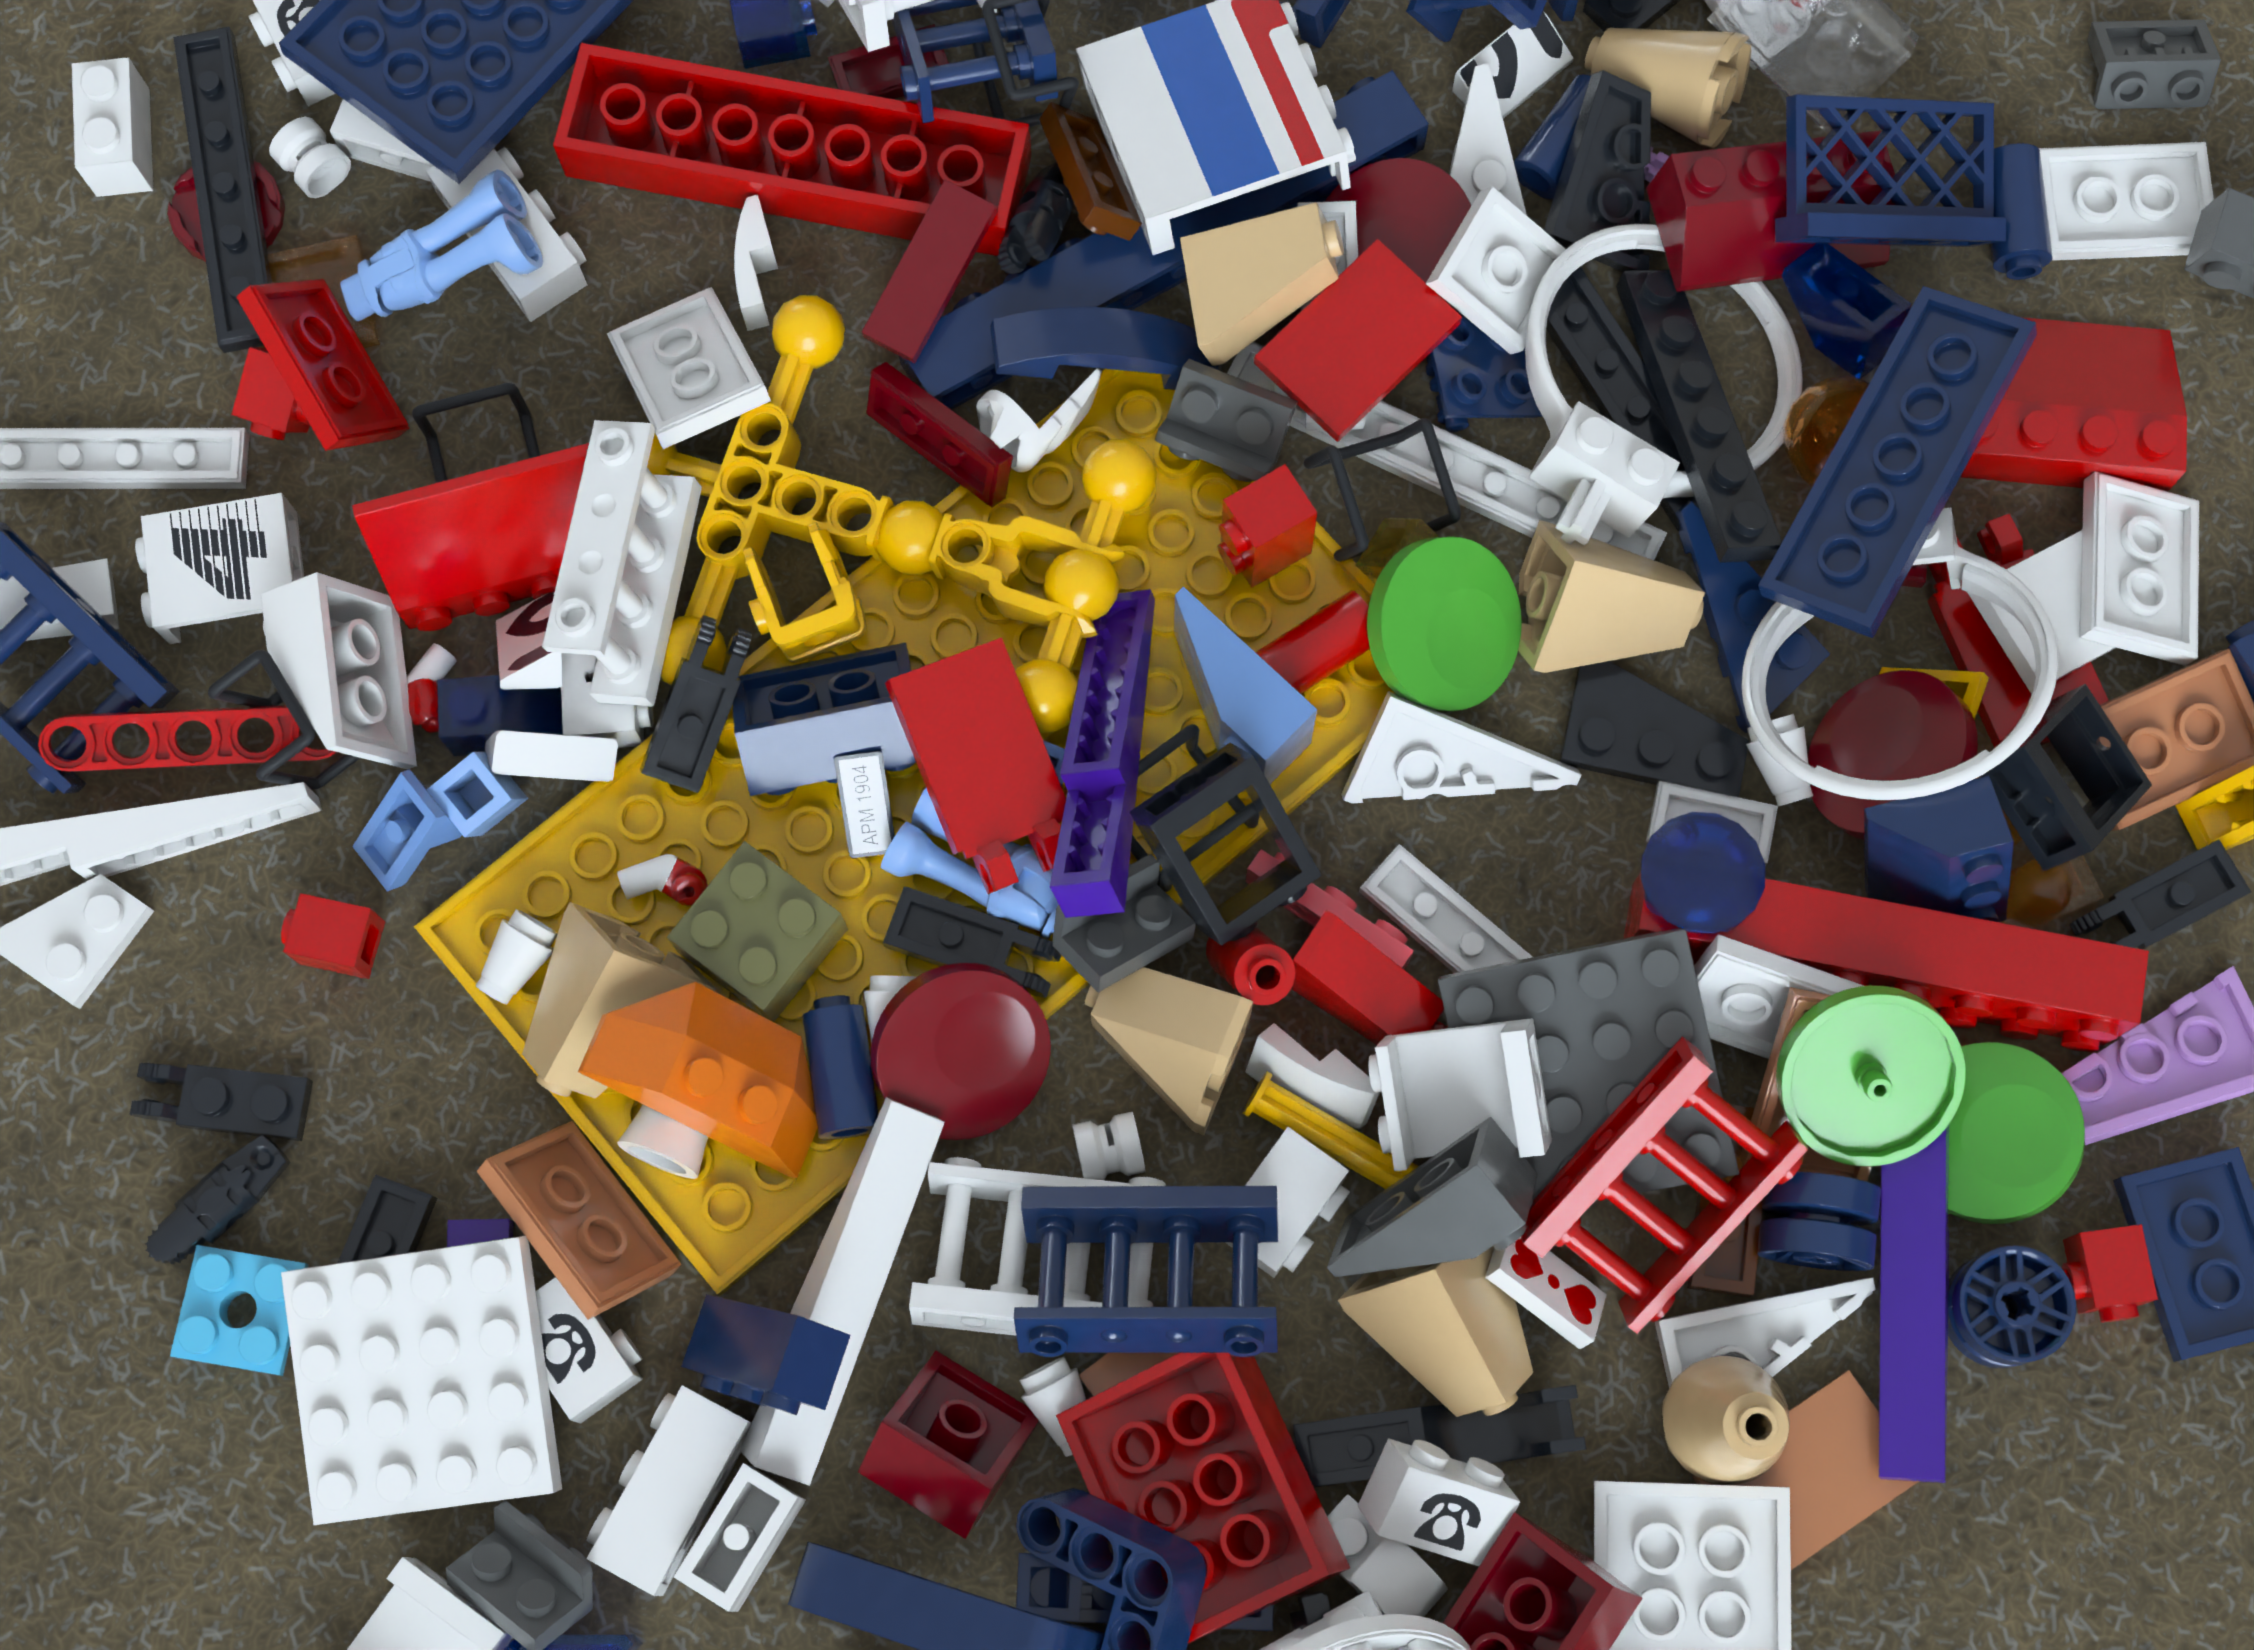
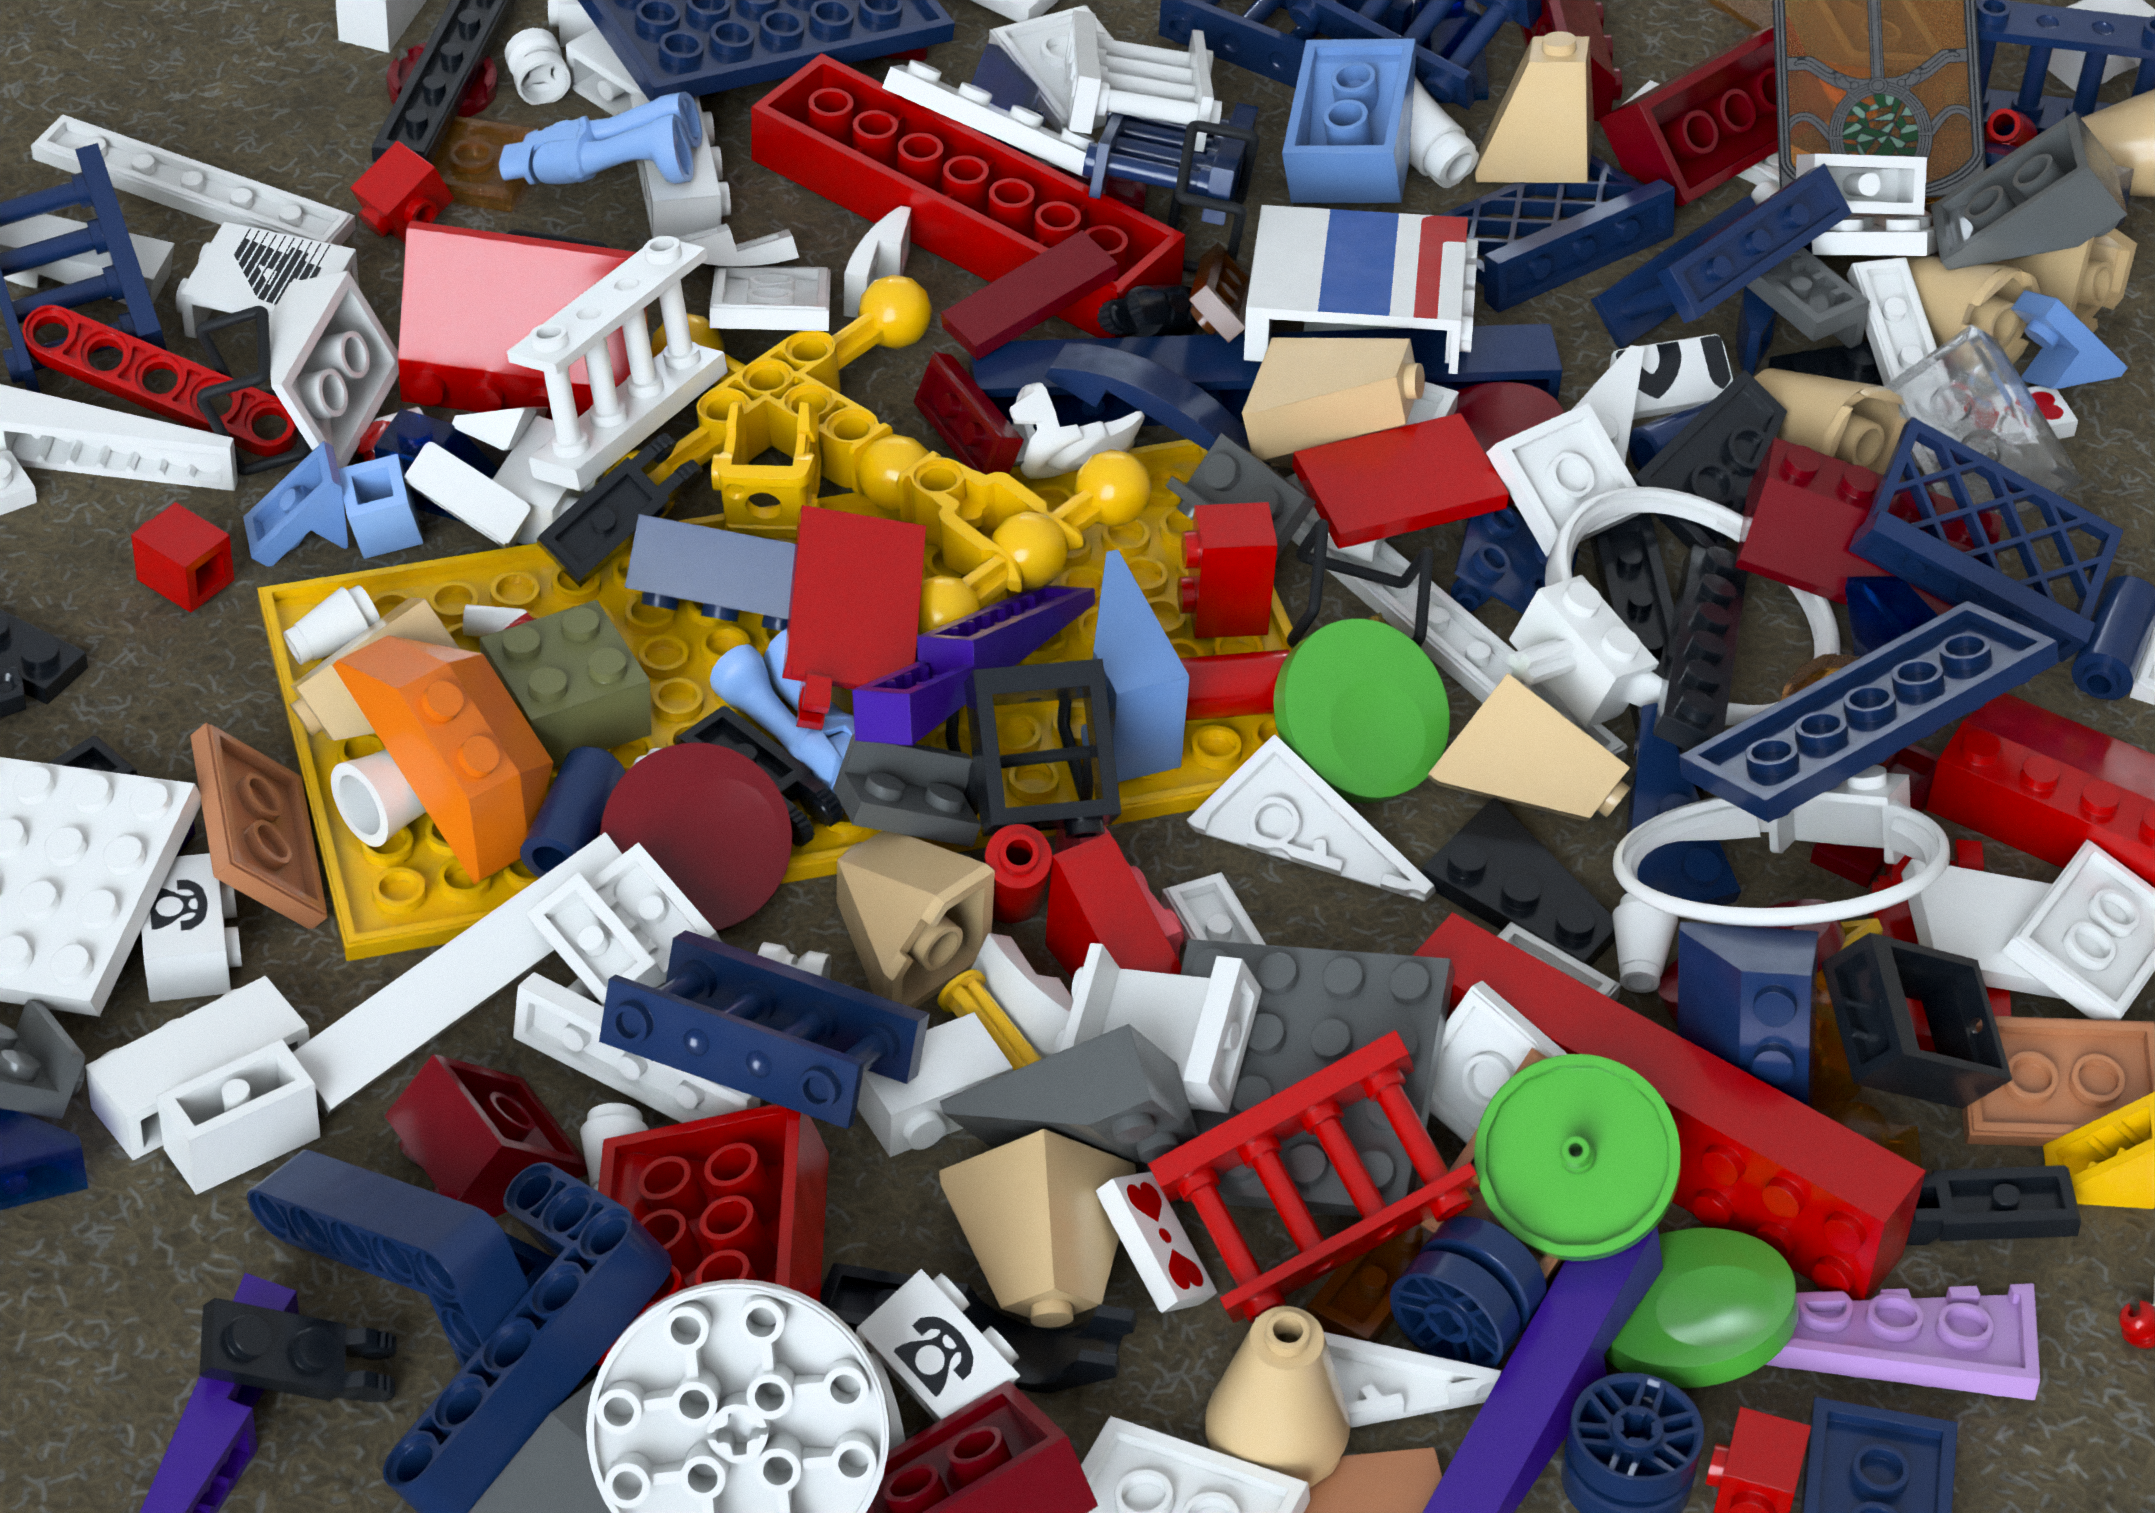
camera: 20 degrees right, 30 degrees down
(323, 363) = (450, 161): red tile -> none
(599, 318) = (756, 252): none -> white slope
(765, 1355) = (361, 961): dark blue brick -> none
(775, 51) = (973, 108): none -> white plate
(864, 803) = (728, 625): white sticker -> none
(958, 1193) = (618, 922): none -> white slope
(1702, 873) = (1495, 933): clear blue dish -> none

